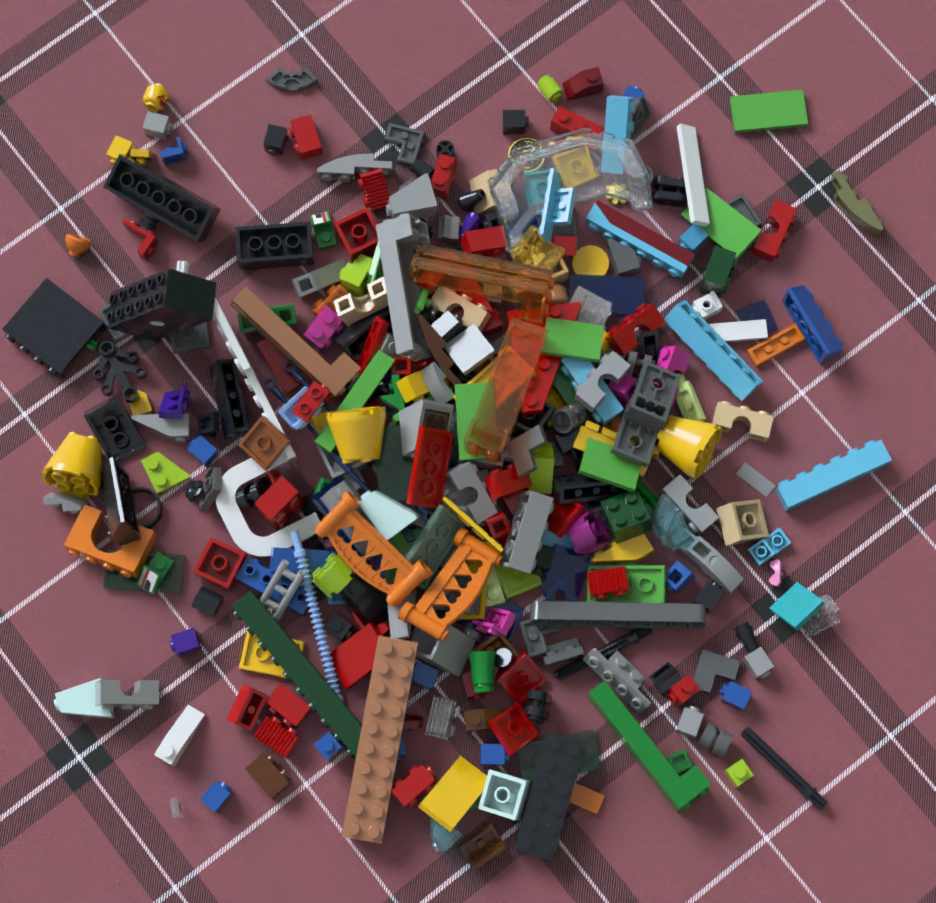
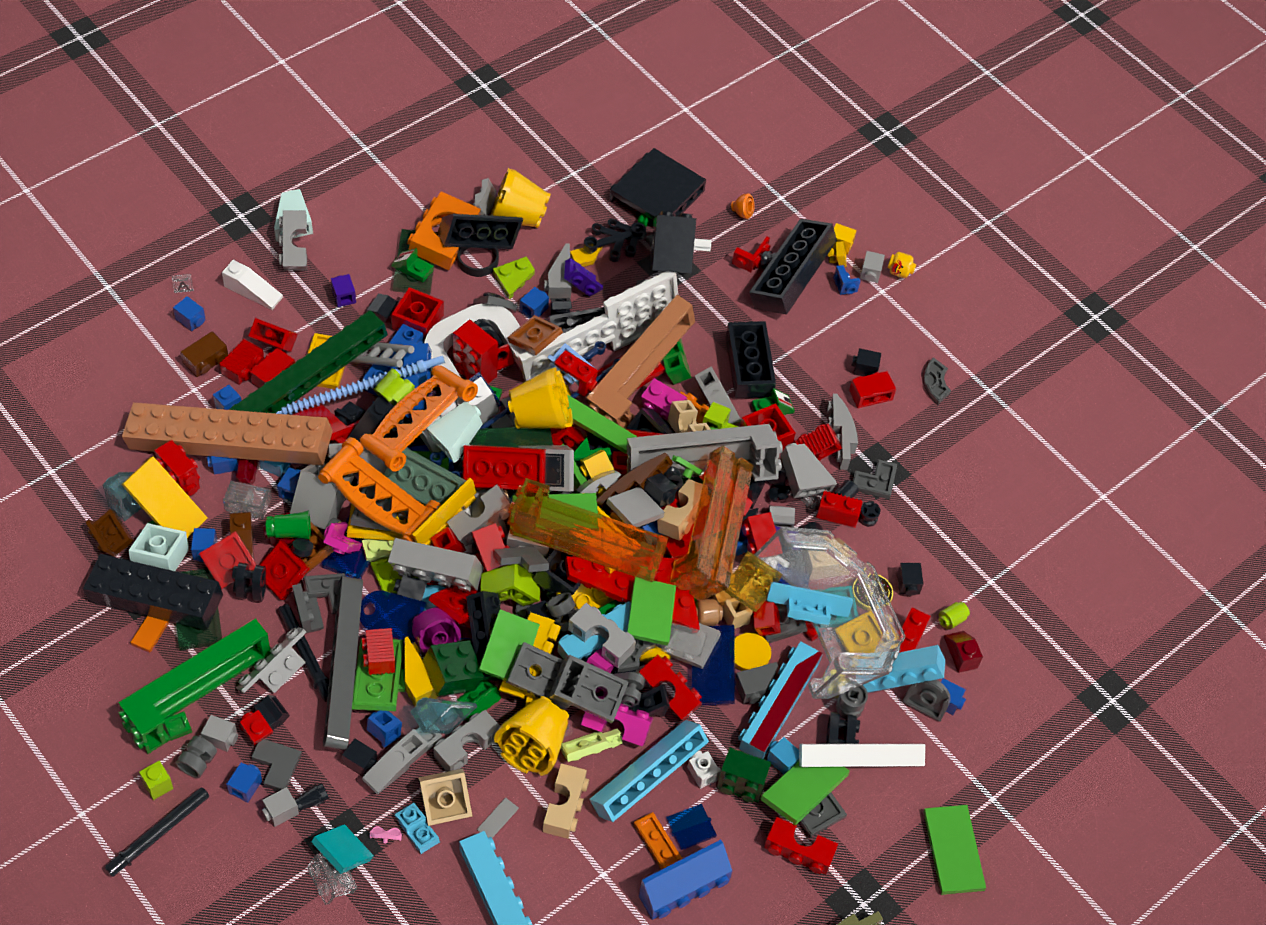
camera: 80 degrees right, 20 degrees down
(114, 428) = (554, 232): black slope -> none
(741, 330) = (676, 804): white tile -> none

